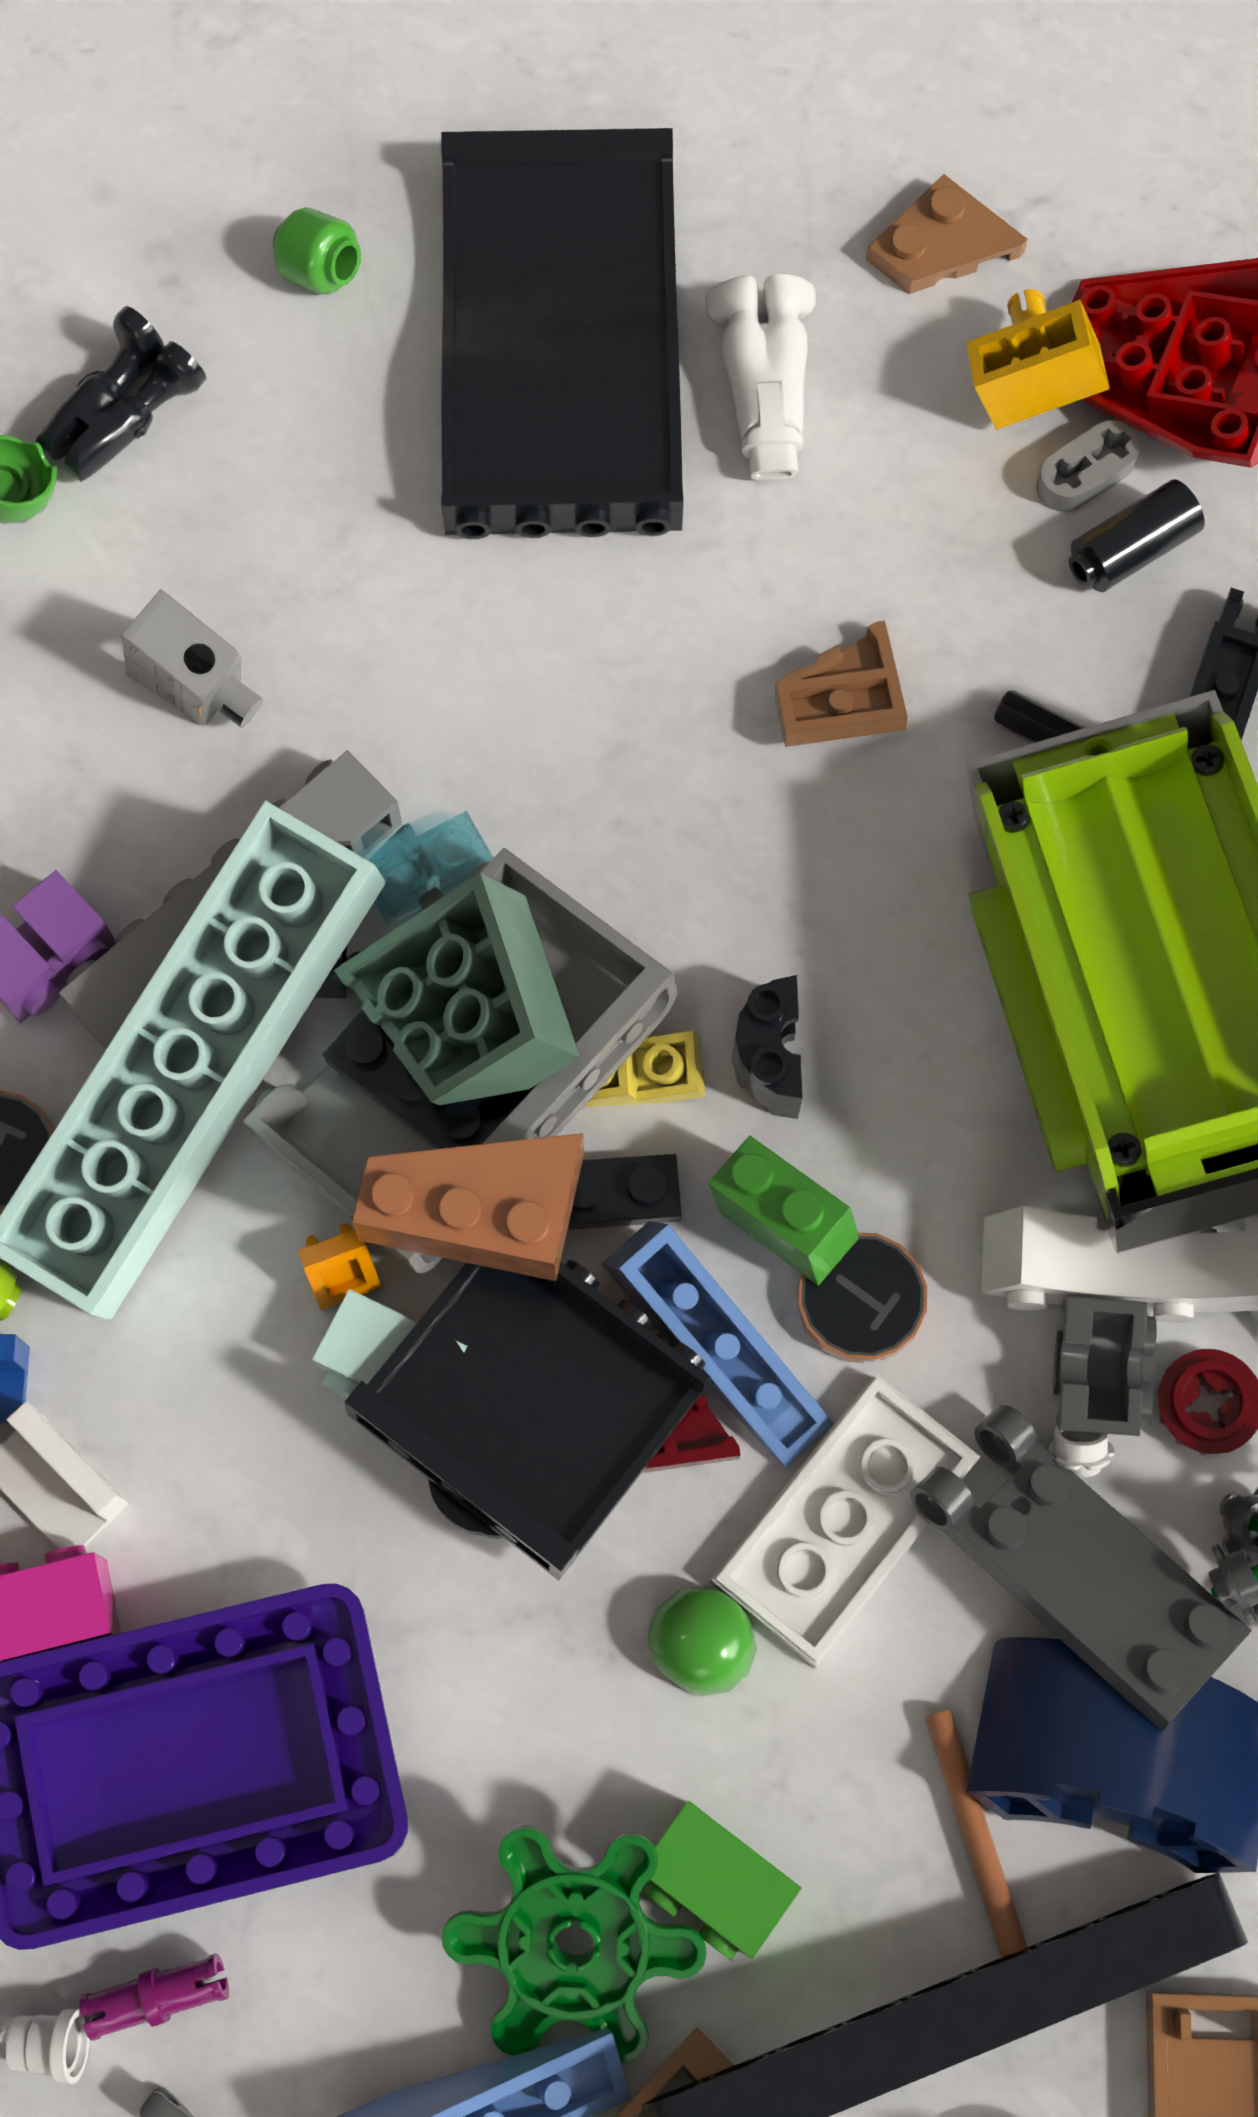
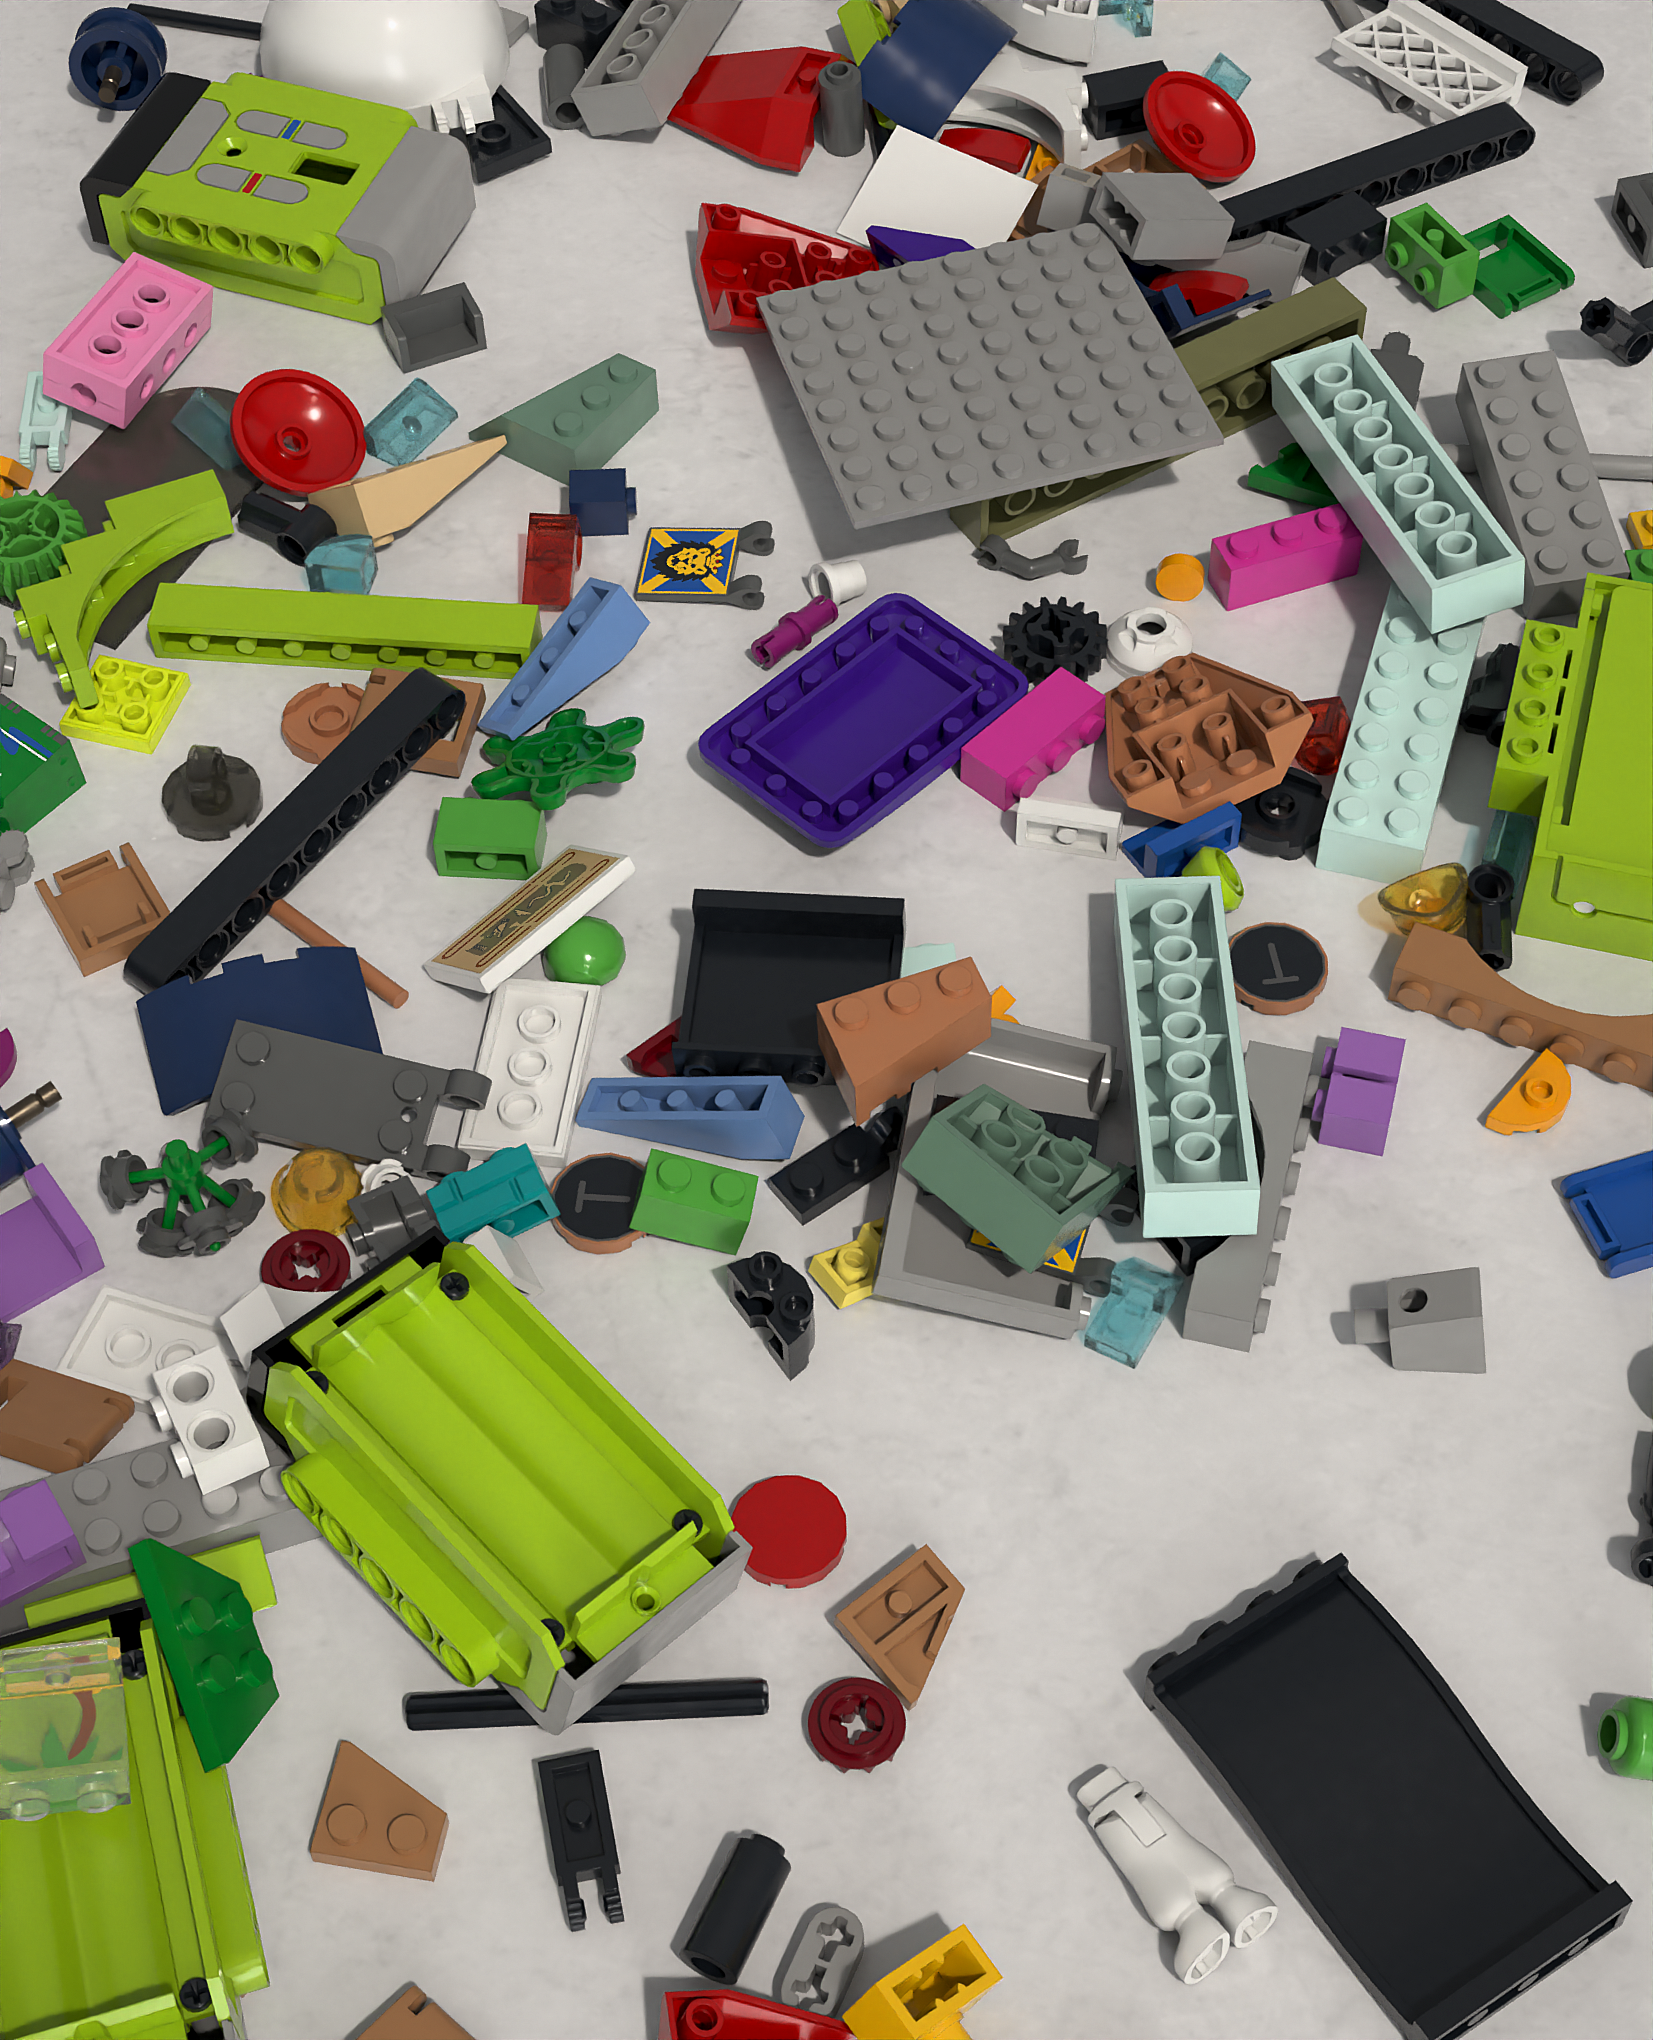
camera: 150 degrees right, 20 degrees down
(741, 1713) = (529, 918): none -> tile
(890, 840) = (793, 1530): none -> red tile
(940, 610) = (841, 1704): none -> dark red gear
(985, 1344) = (500, 1193): none -> teal brick
(1156, 1489) = (315, 1191): none -> clear yellow helmet

